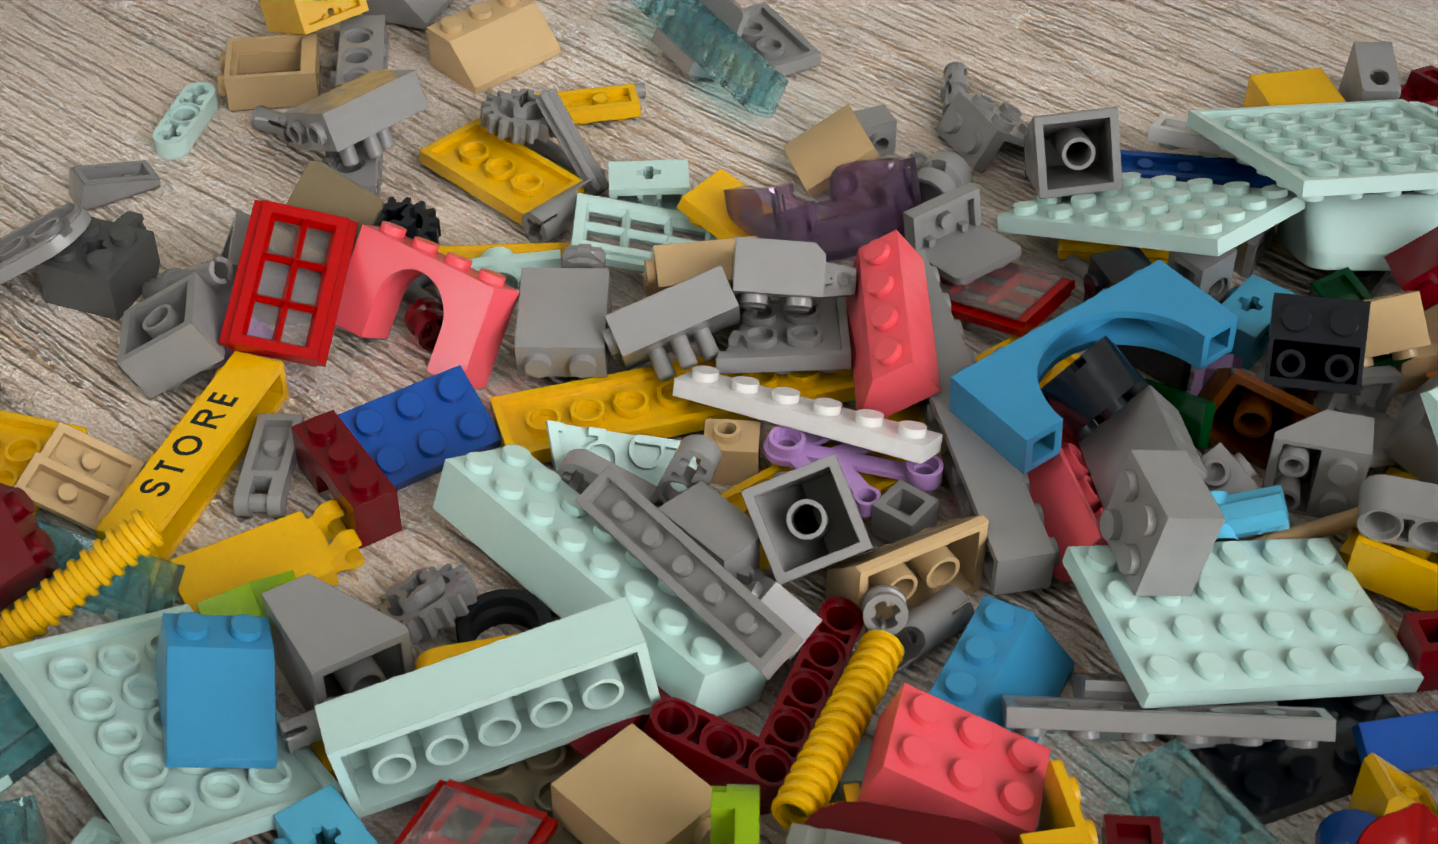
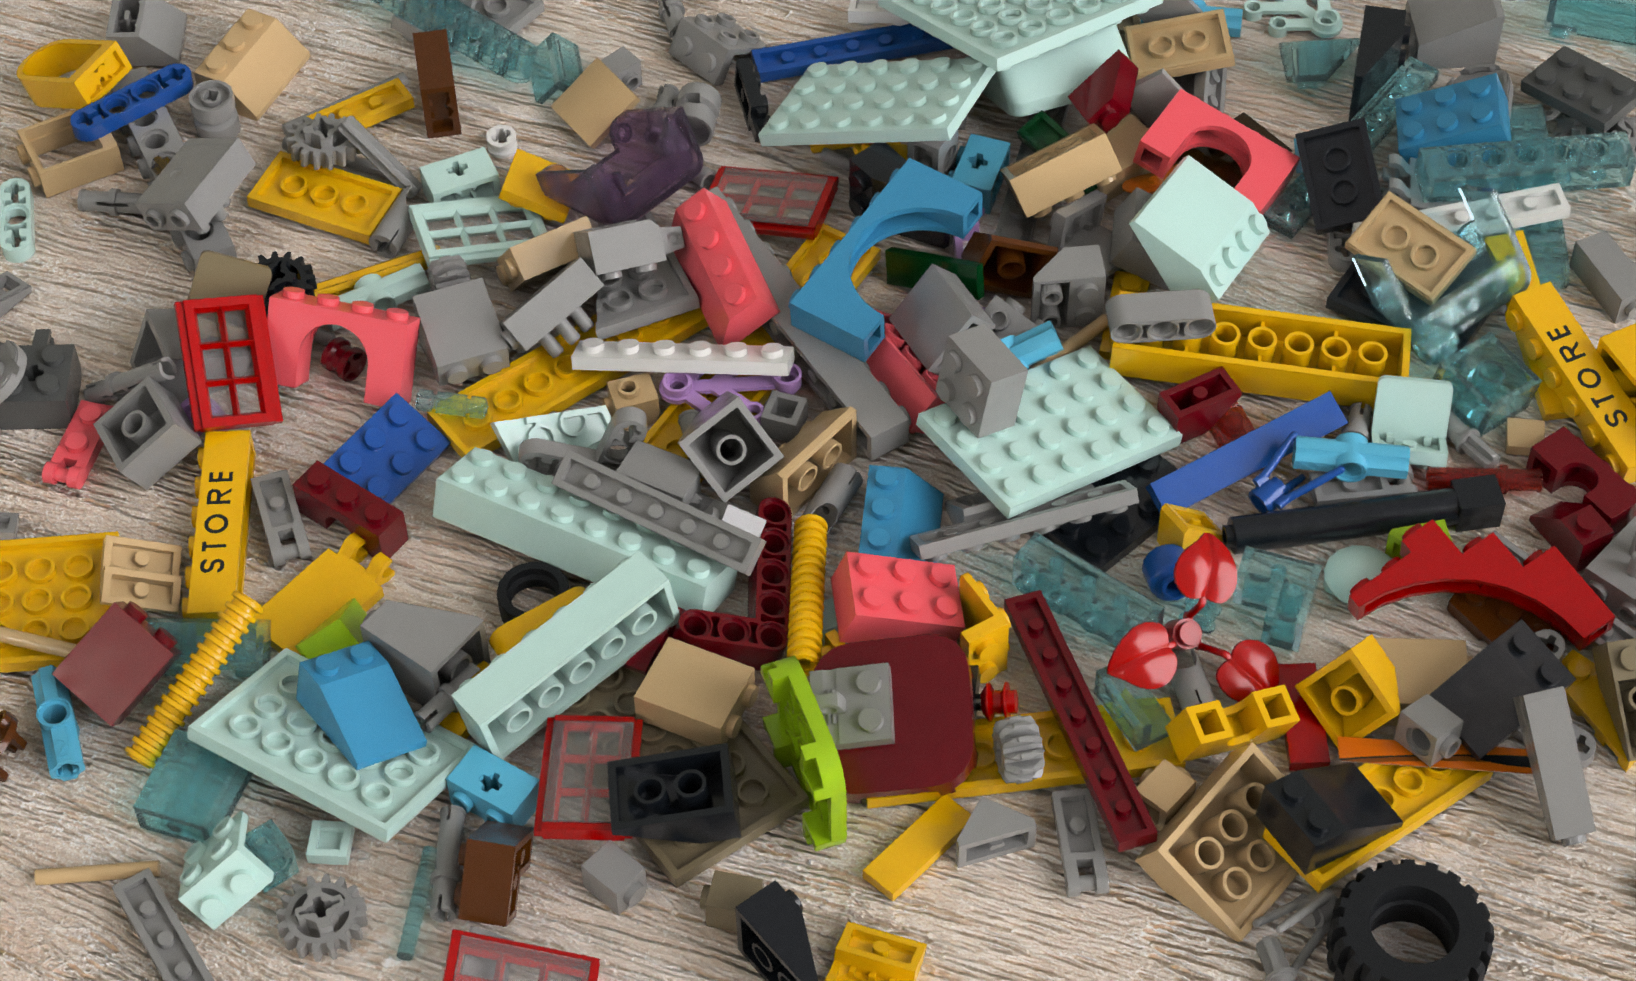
camera: 20 degrees left, 10 degrees up
(95, 345) = (77, 447): none -> coral plate
(349, 38) = (174, 79): none -> blue beam
(429, 600) = (468, 588): light grey gear -> none
(434, 63) = (214, 110): none -> light grey wheel
(518, 395) = (451, 403): none -> clear light blue axle
(667, 93) = (436, 83): none -> reddish brown window
(712, 161) = (499, 133): none -> white bush
(804, 109) = (555, 66): none -> clear light blue panel
(888, 594) = (810, 489): light grey bush -> none
(955, 238) = (735, 166): light grey bracket -> none
(1008, 181) = (752, 102): none -> black hinge
(1074, 152) = (803, 66): light grey slope -> none
(1093, 388) = (889, 275): black brick -> none
(1317, 343) = (1042, 196): black slope -> none

